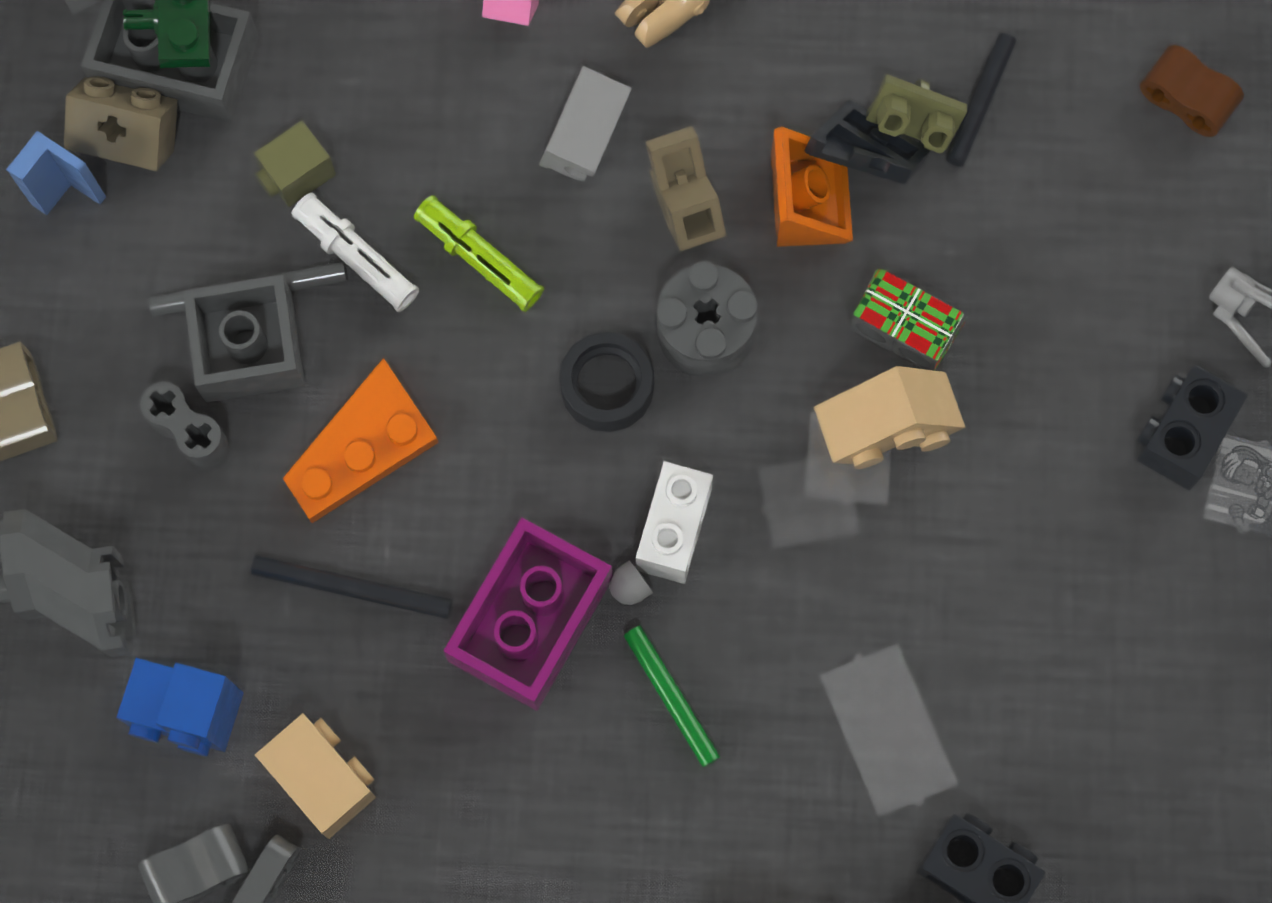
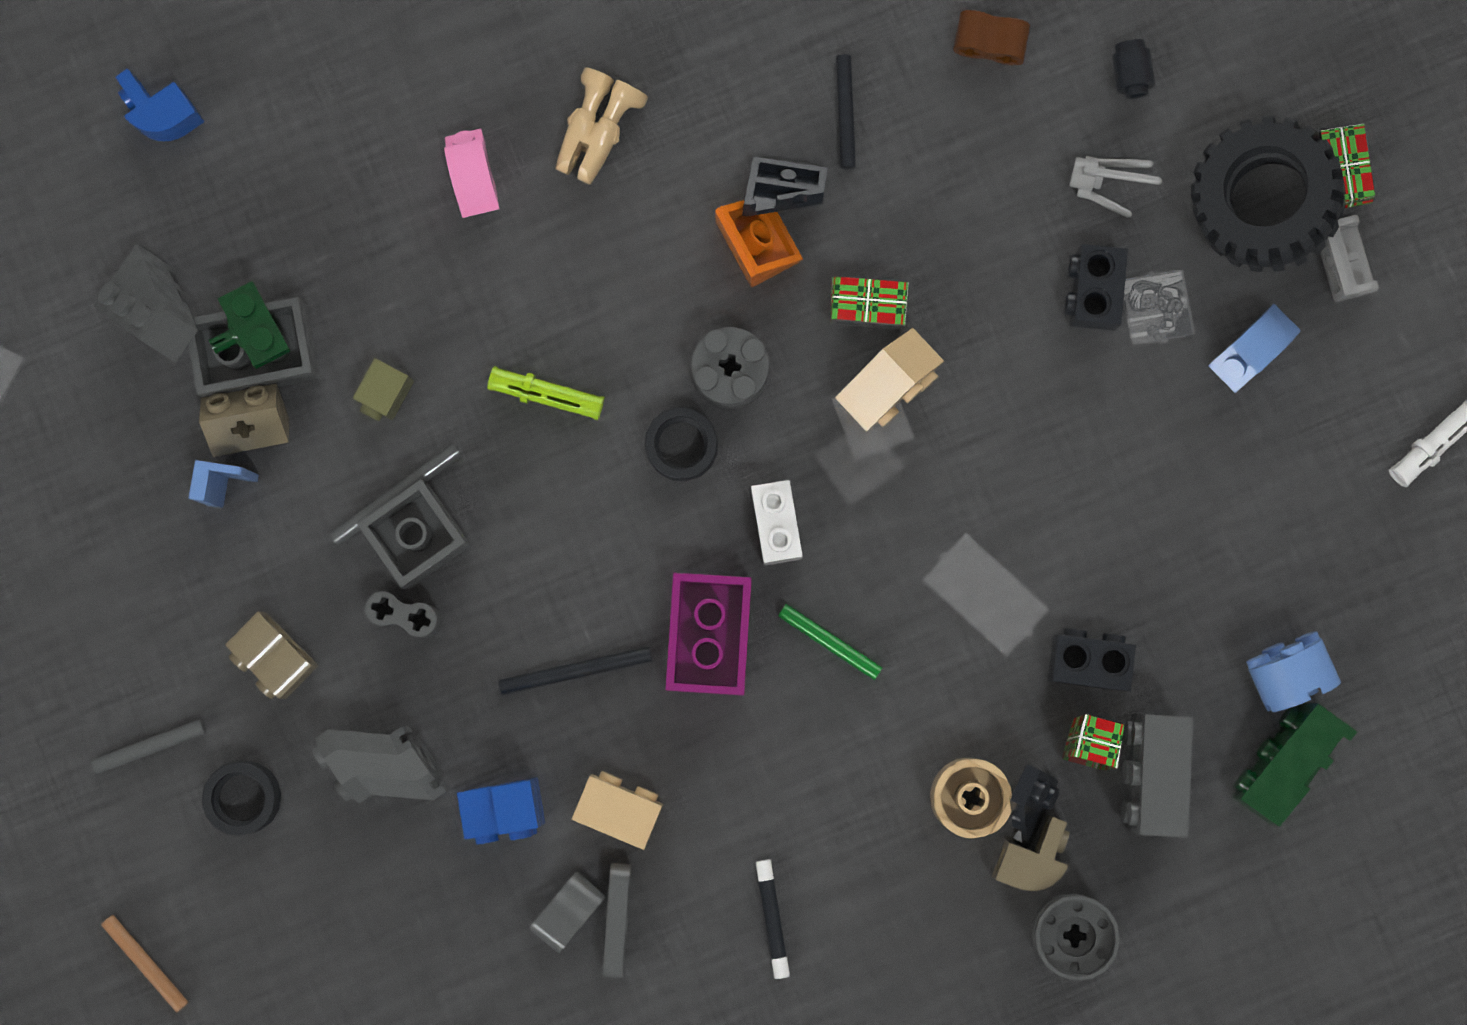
camera: 20 degrees left, 10 degrees up
(339, 238) = (458, 433): white pin -> none
(360, 445) = (531, 568): orange wing -> none
(585, 125) = (575, 263): light grey hinge -> none
(628, 585) = (765, 580): light grey hinge -> none
(684, 190) = (671, 281): dark tan brick -> none
(916, 112) = (805, 146): olive hips -> none

